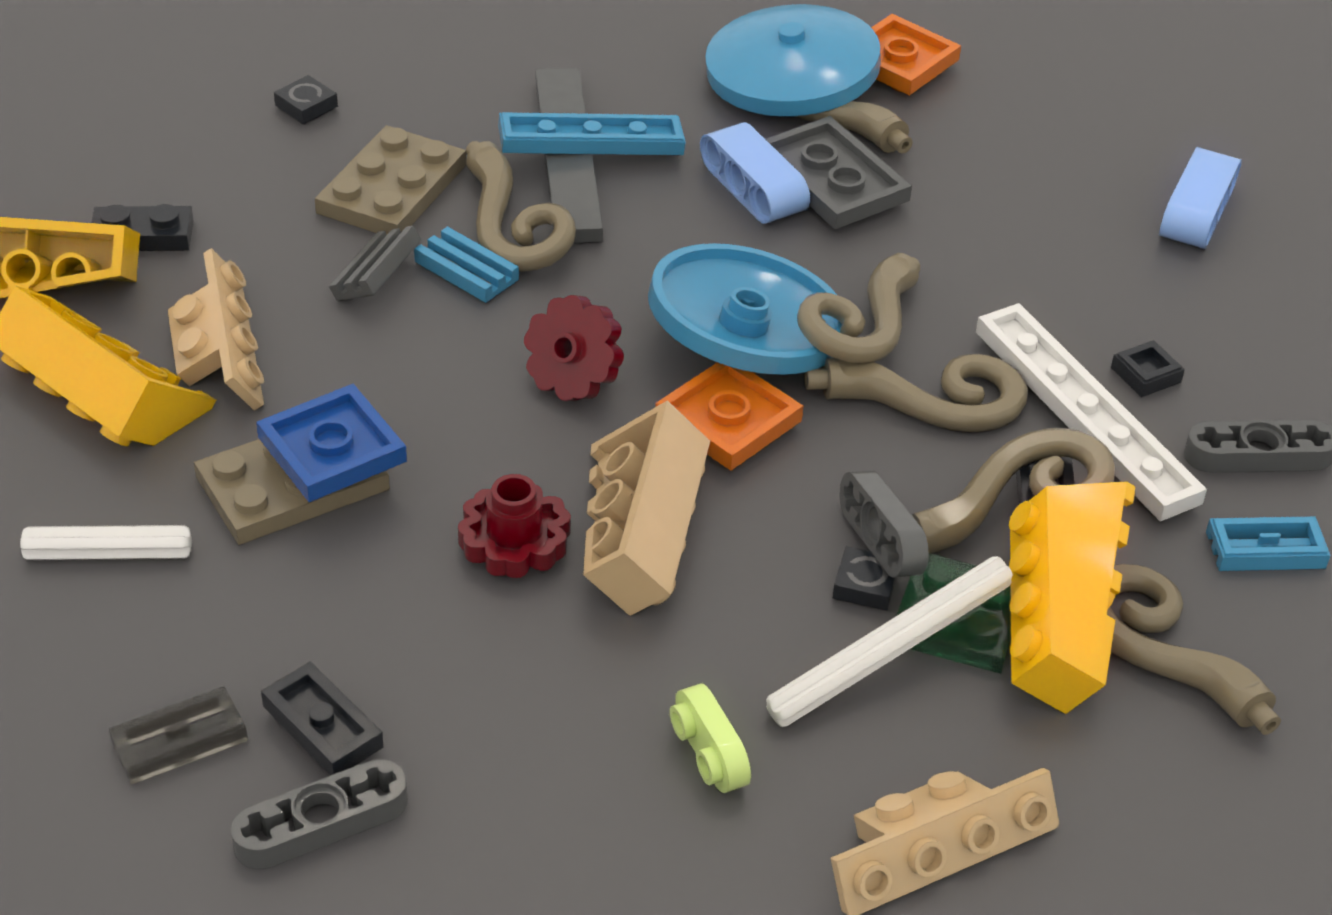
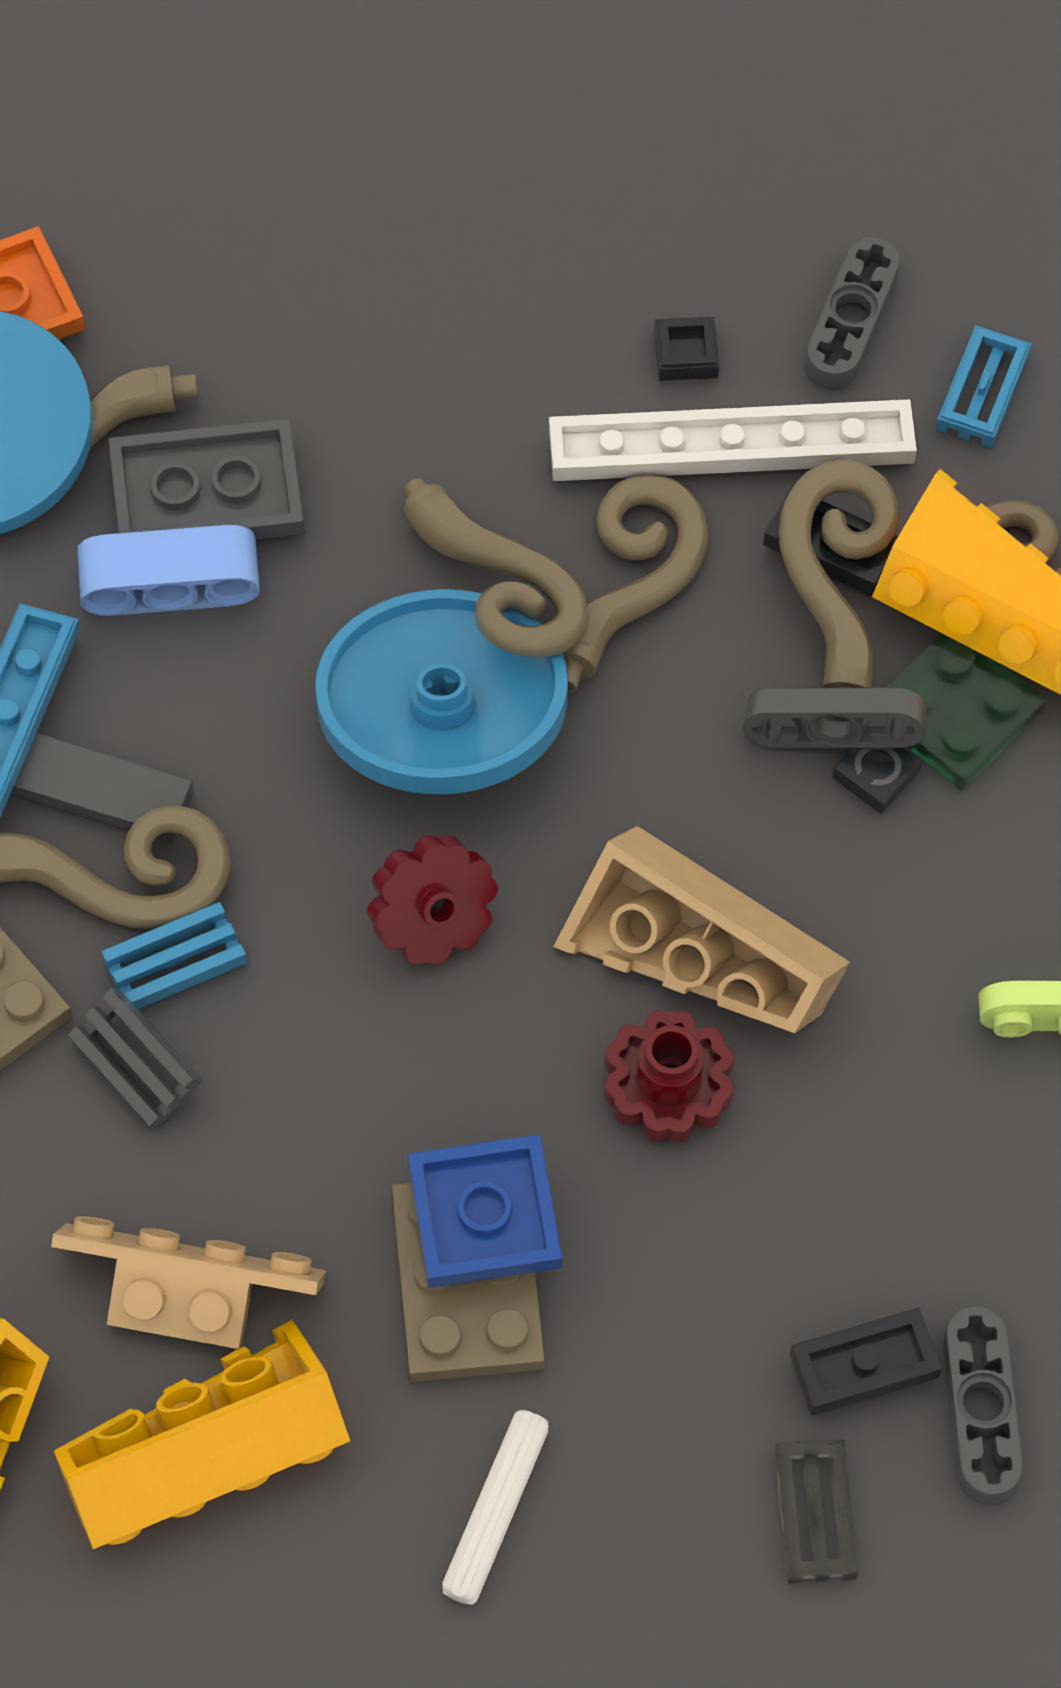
camera: 65 degrees left, 20 degrees up
(735, 412) = (585, 789): orange plate -> none
(888, 641) = (997, 790): white axle -> none
(1200, 197) = (447, 139): light blue beam -> none

